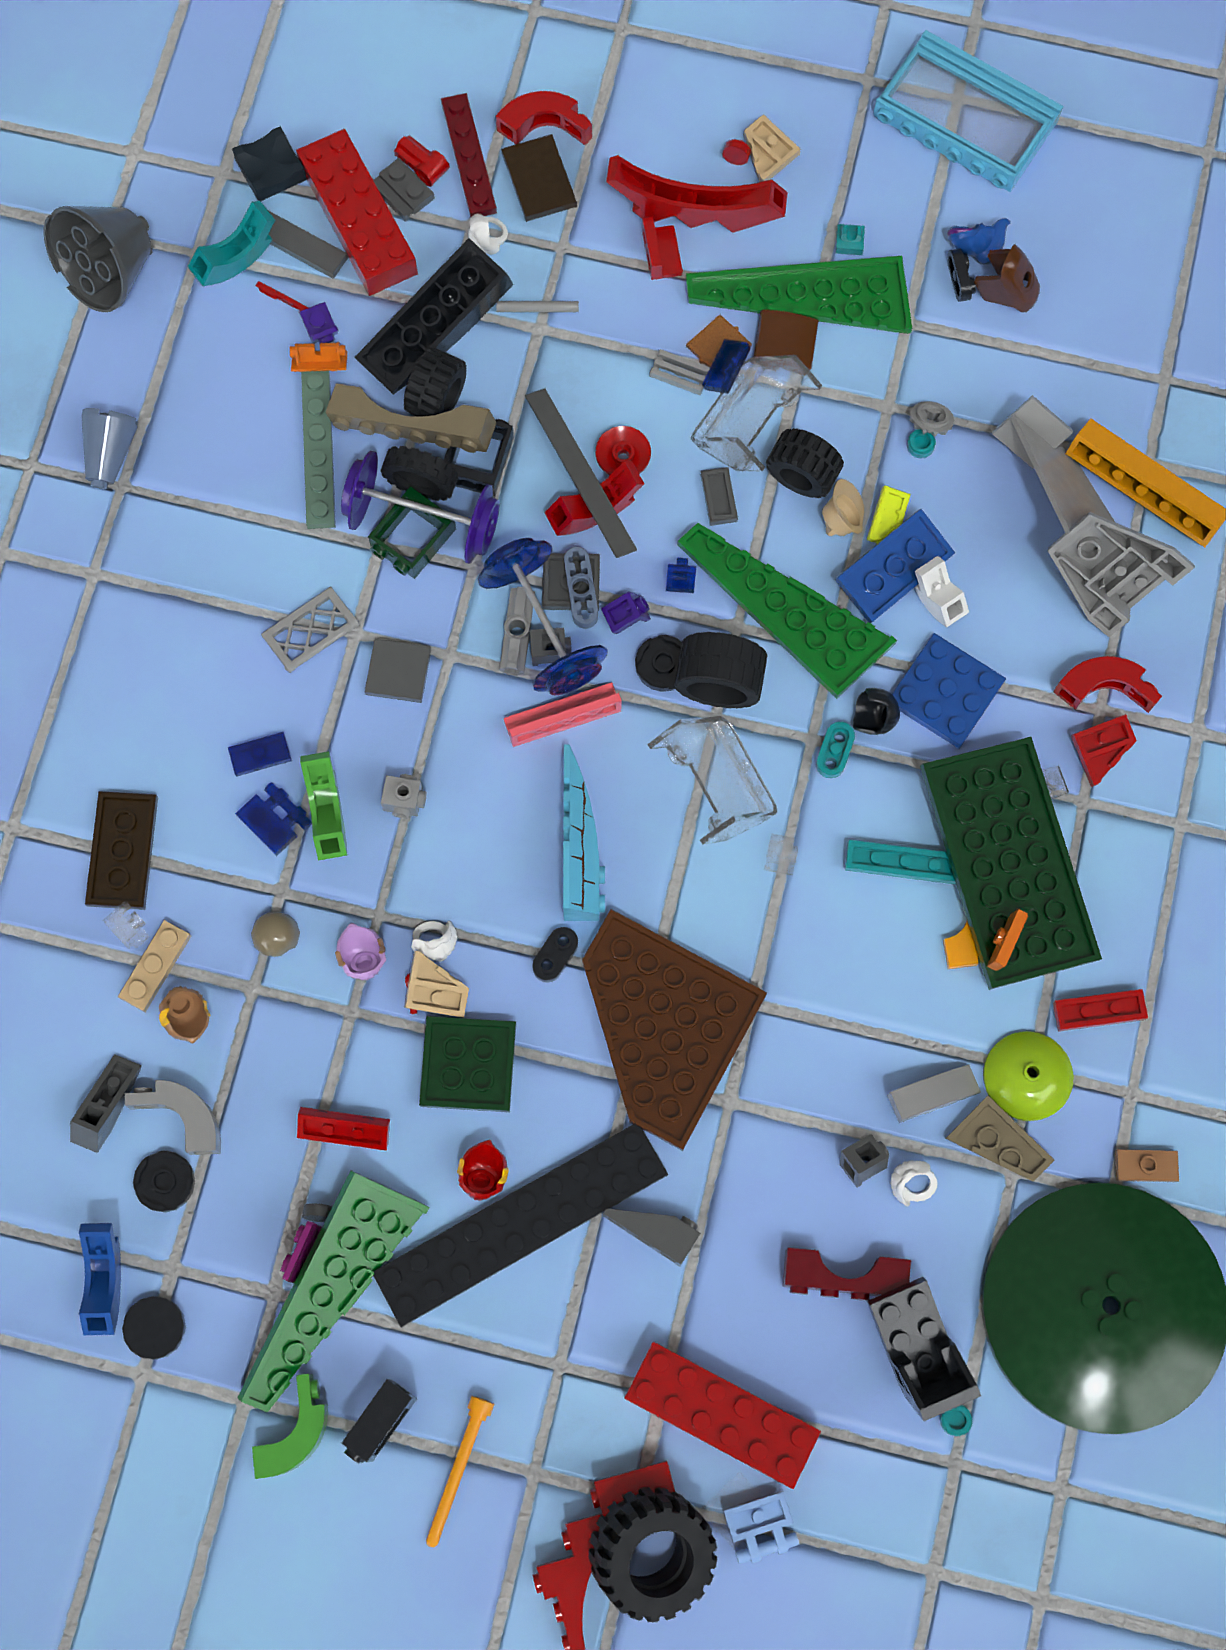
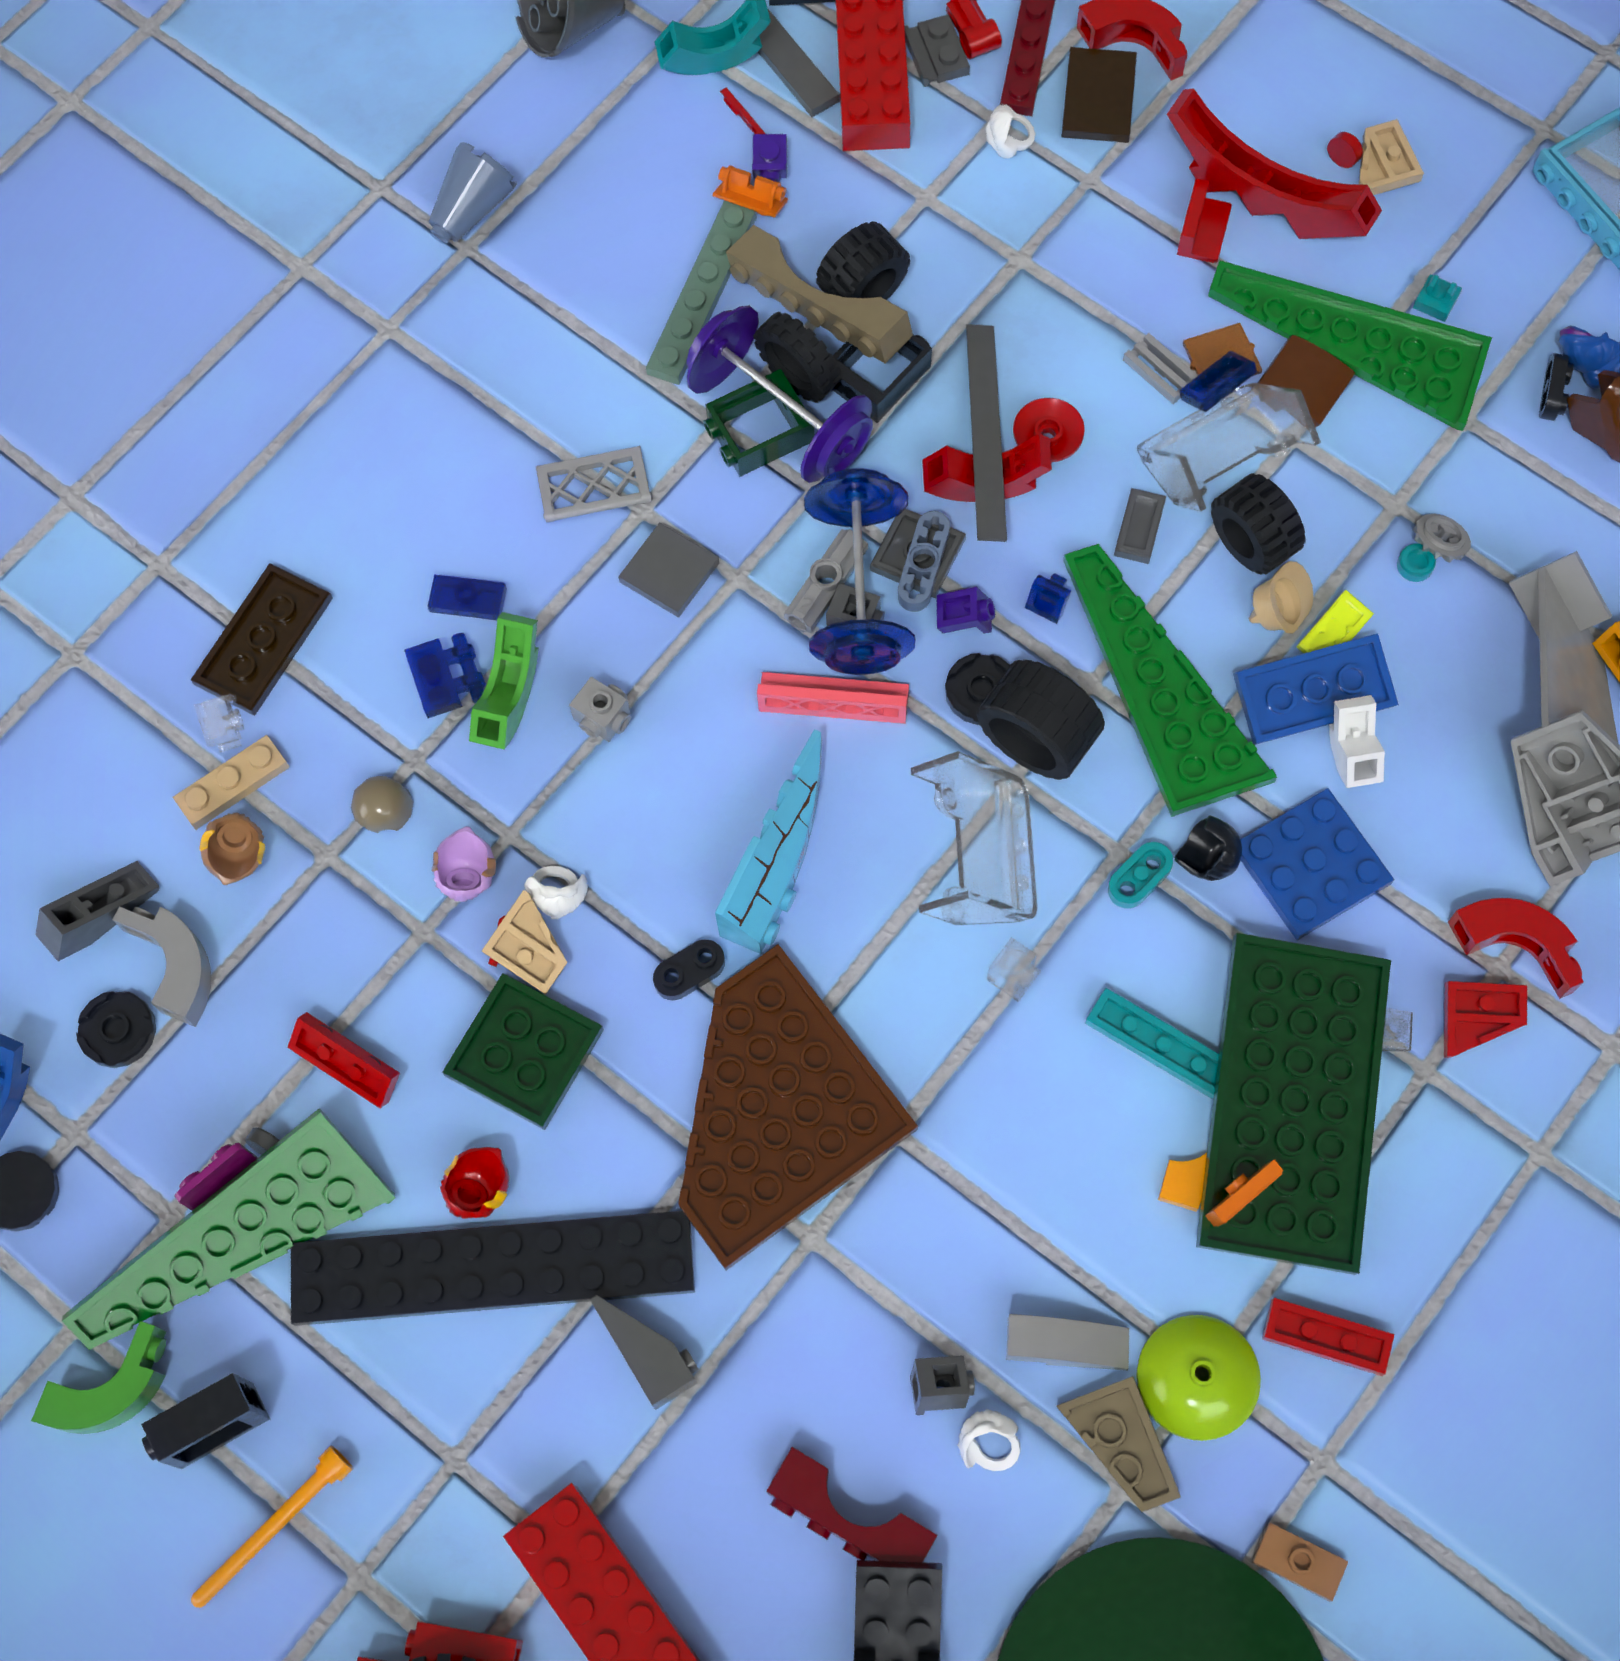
camera: 30 degrees right, 5 degrees down
(436, 315) = (910, 193): black slope -> none
(537, 306) = (1028, 233): light grey bar -> none

